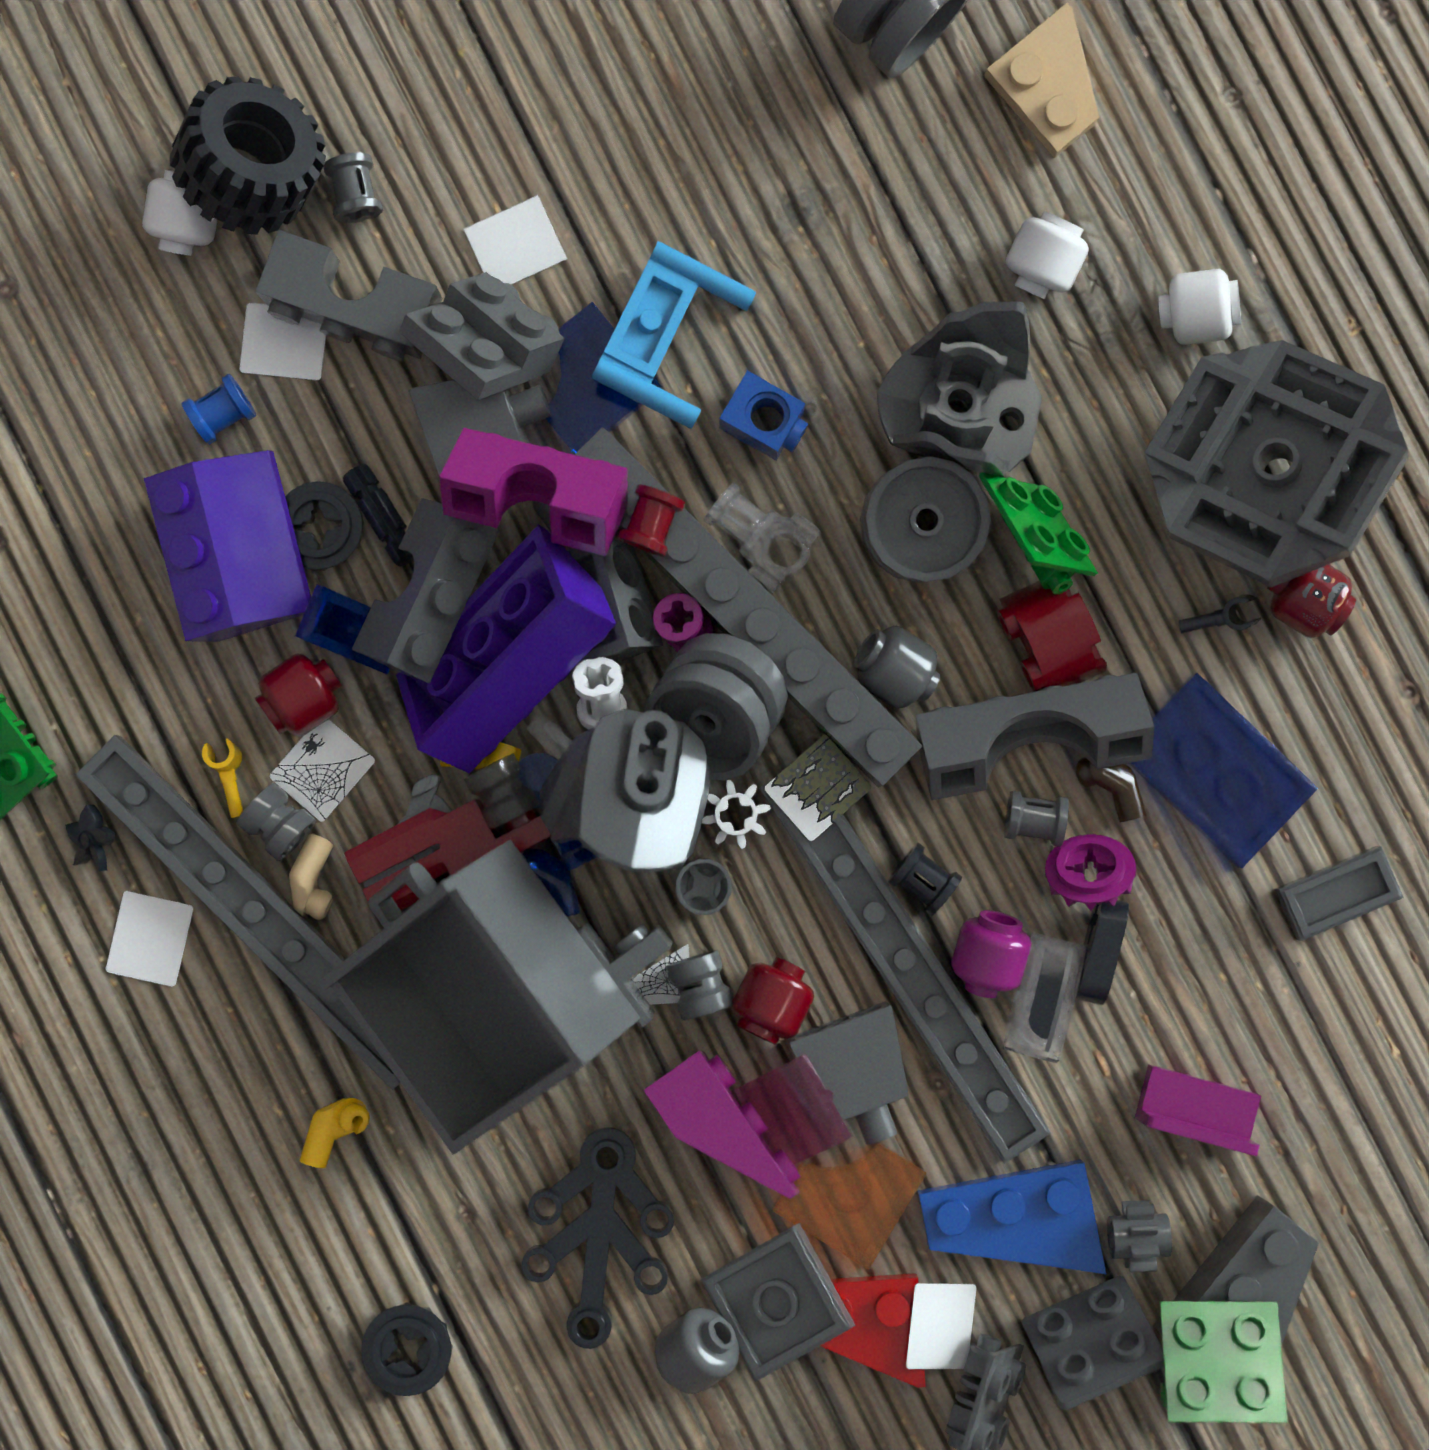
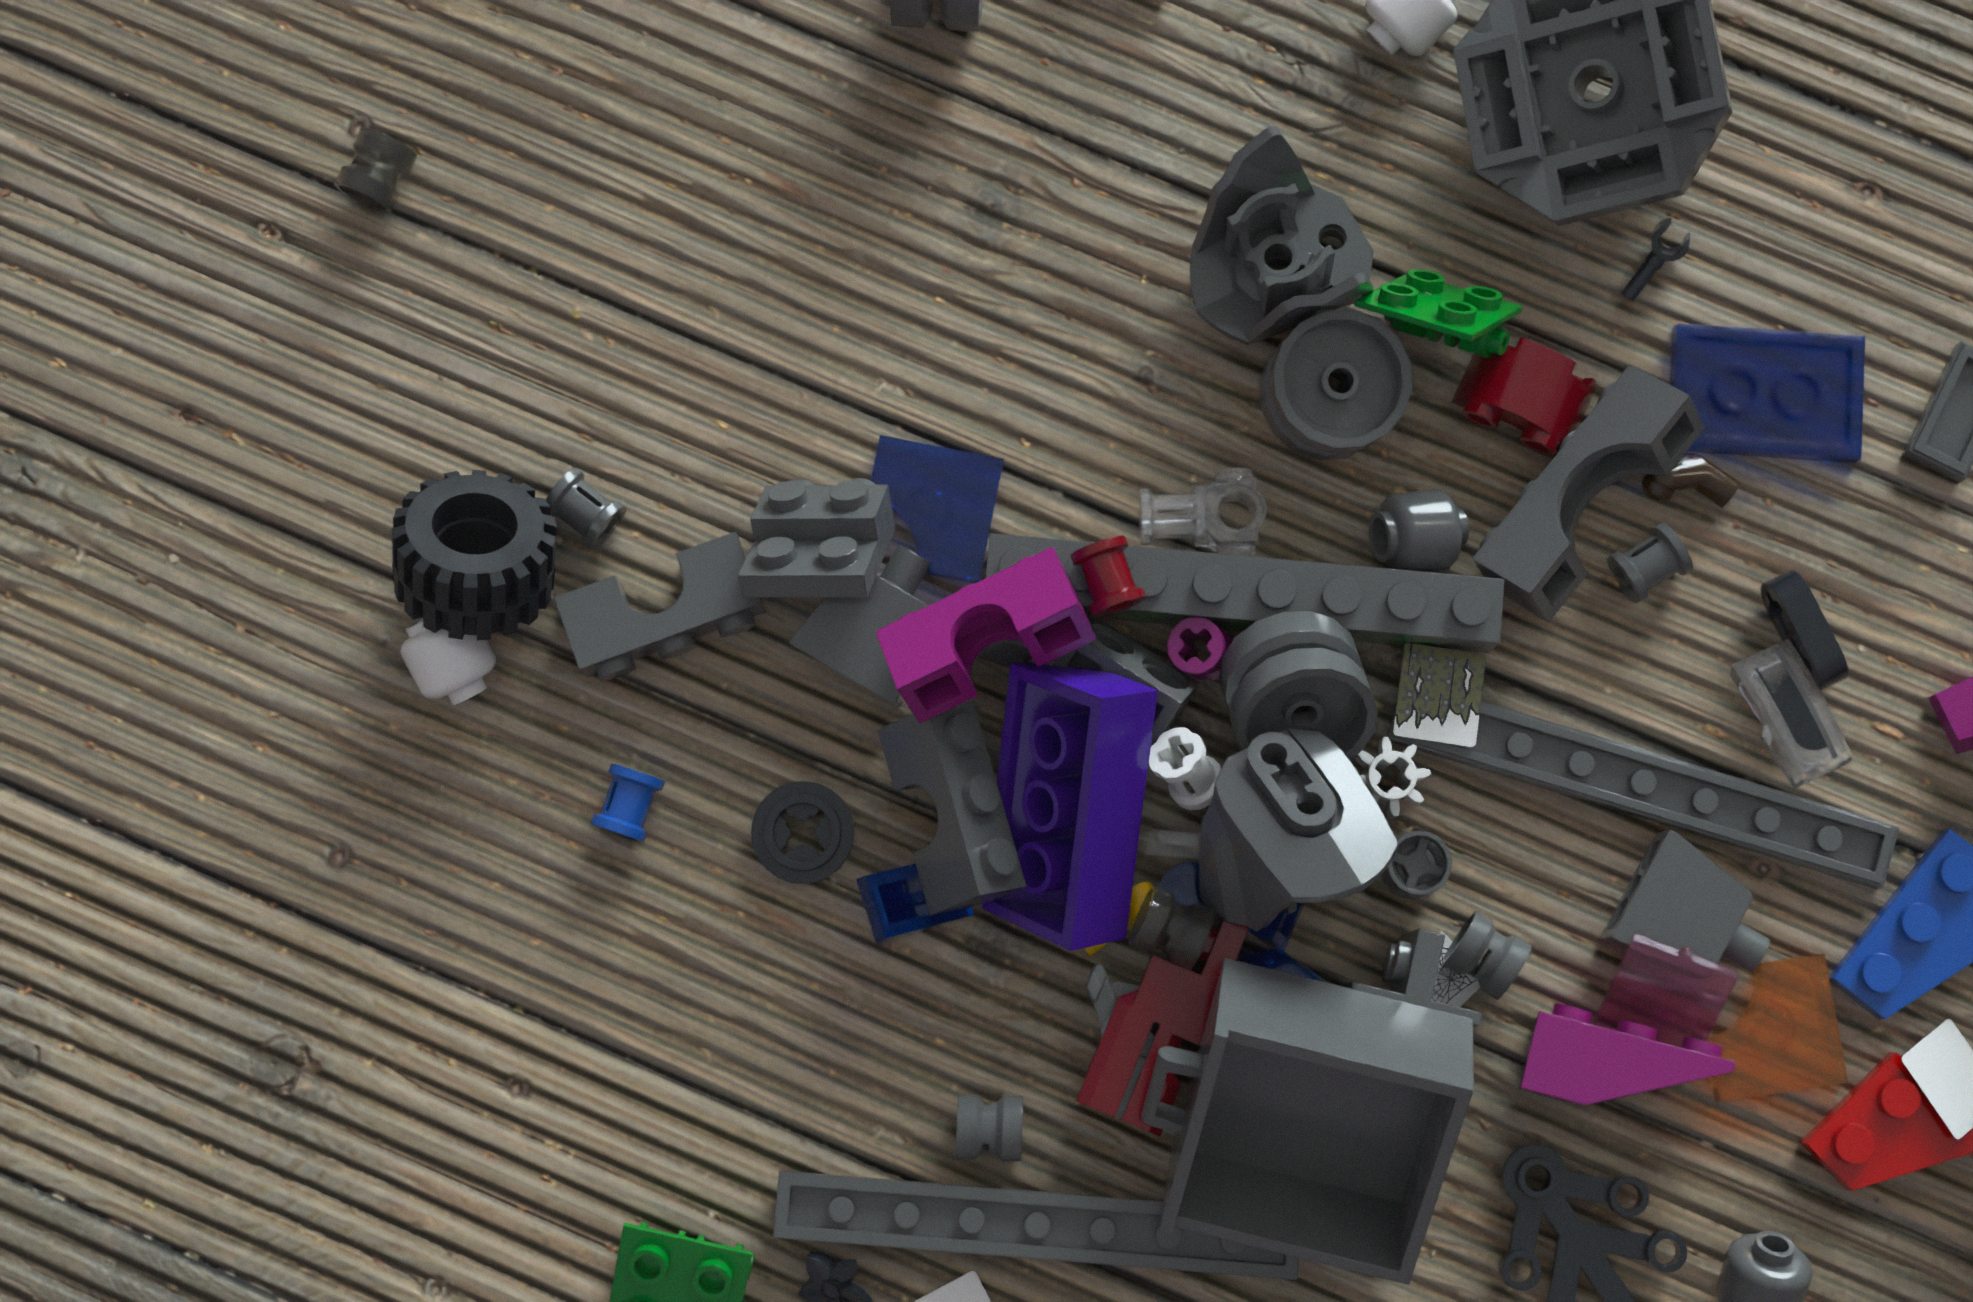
camera: 40 degrees left, 5 degrees down
(227, 774) = (910, 1127): yellow hand -> none
(228, 545) = (742, 913): dark purple slope -> none
(281, 347) = (632, 704): white sticker -> none
(298, 694) = (914, 996): dark red head -> none
(304, 878) = (1054, 1153): tan arm -> none
(322, 769) = (985, 1047): white sticker -> none
(378, 511) = (846, 776): black axle -> none
(516, 242) = (765, 440): white sticker -> none
(651, 323) = (951, 412): dark azure plate -> none
(757, 393) = (1096, 431): blue brick -> none
(772, 1000) = (1562, 914): dark red head -> none
(778, 1302) = (1796, 1177): dark grey tile -> none
(931, 896) = (1621, 706): black bush -> none
(991, 953) = (1714, 712): magenta head -> none
(1047, 254) = (1241, 72): white head -> none
(1110, 858) = (1743, 545): magenta gear -> none
(1314, 601) = (1727, 180): dark red head -> none

